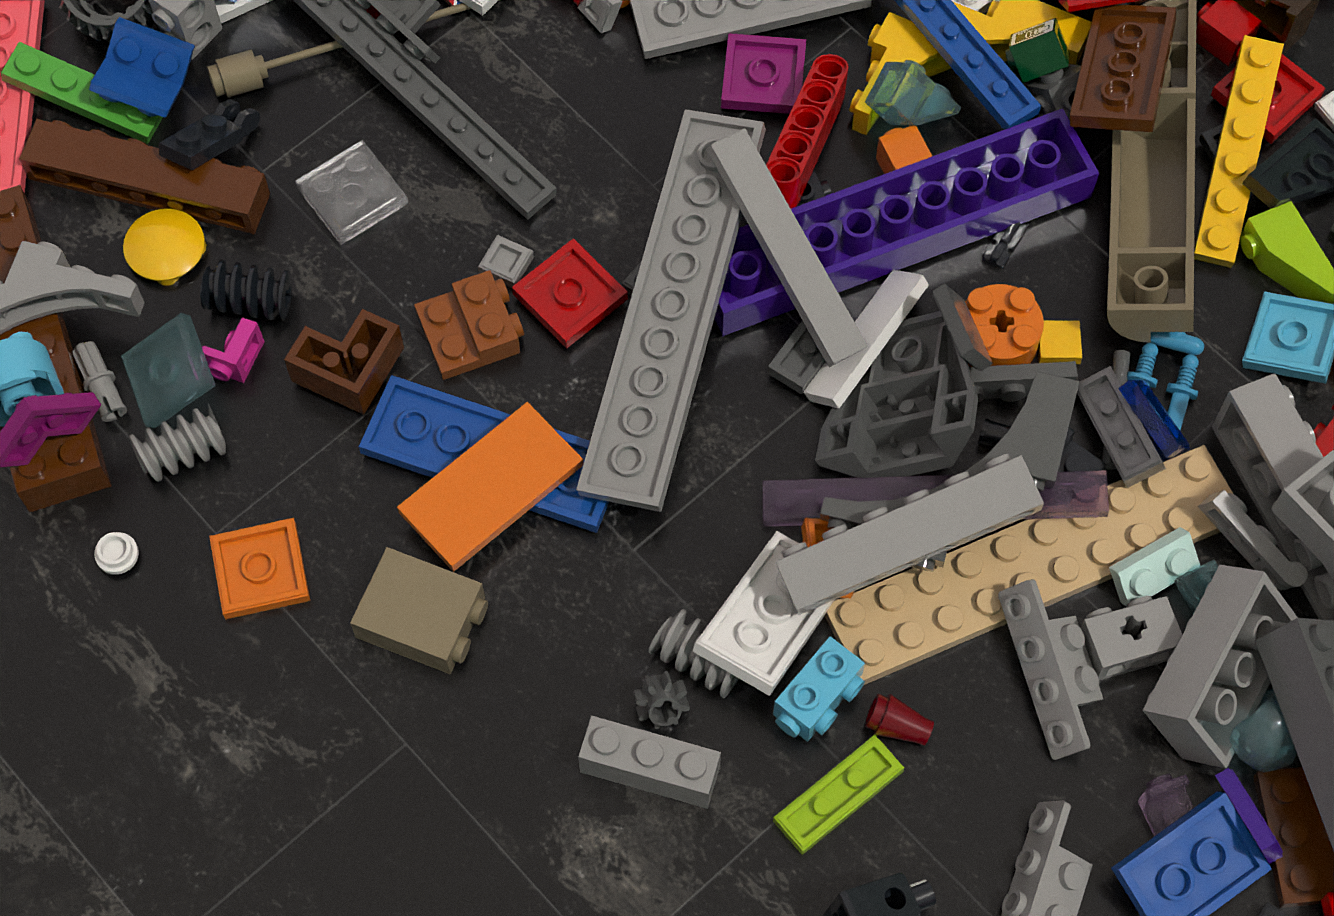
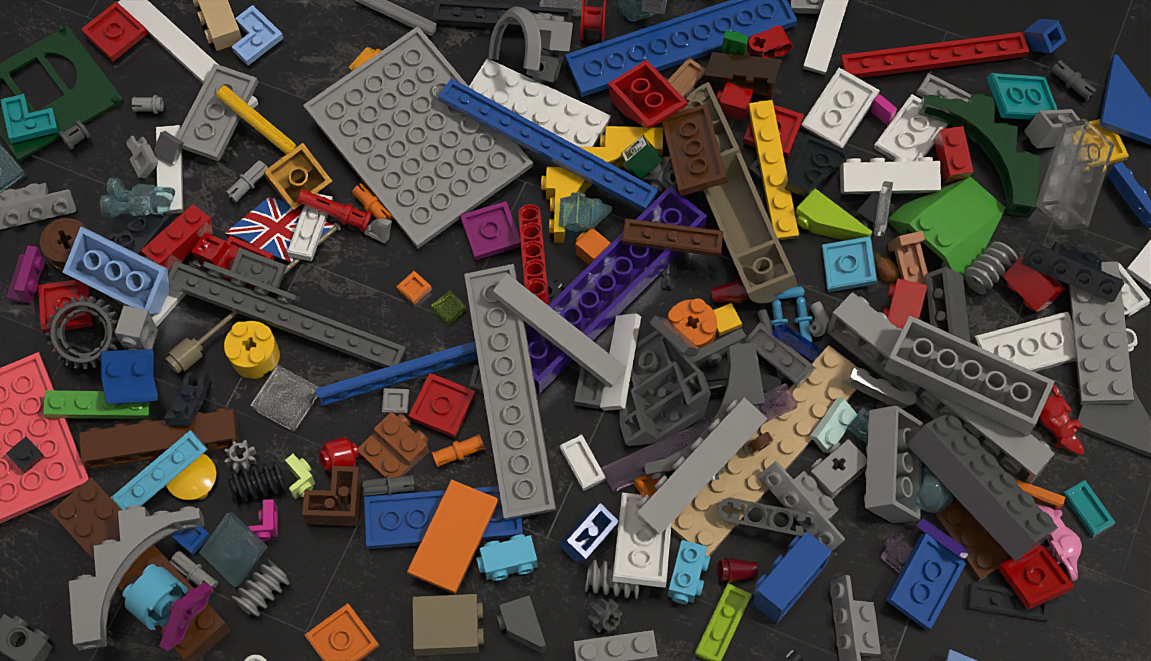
camera: 25 degrees left, 0 degrees up
(119, 331) = (191, 538): none -> blue plate
(122, 218) = (160, 471): none -> medium azure tile
(245, 245) = (237, 449): none -> light grey gear
(320, 301) = (301, 471): none -> yellowish green bracket
(335, 102) = (251, 349): none -> yellow brick
(385, 297) = (338, 453): none -> red head
(433, 373) = (388, 485): none -> dark grey axle
(521, 220) = (397, 373): none -> blue tile
(531, 656) = (521, 623): none -> dark grey slope
(556, 551) = (507, 557): none -> medium azure brick
(561, 367) = (458, 450): none -> orange pin
(612, 112) = (414, 288): none -> orange tile
(648, 158) = (448, 307): none -> clear neon green tile
(694, 566) = (588, 532): none -> blue brick
(738, 463) = (582, 463): none -> white tile
(976, 765) = (790, 576): none -> blue brick
(981, 661) = (767, 521): none -> dark grey beam
(1023, 543) = (760, 442): none -> reddish brown tile
(1030, 183) = (672, 237): none -> reddish brown tile
(1083, 304) = (731, 292): none -> dark red cone
(1208, 406) = (821, 320): none -> light grey arm

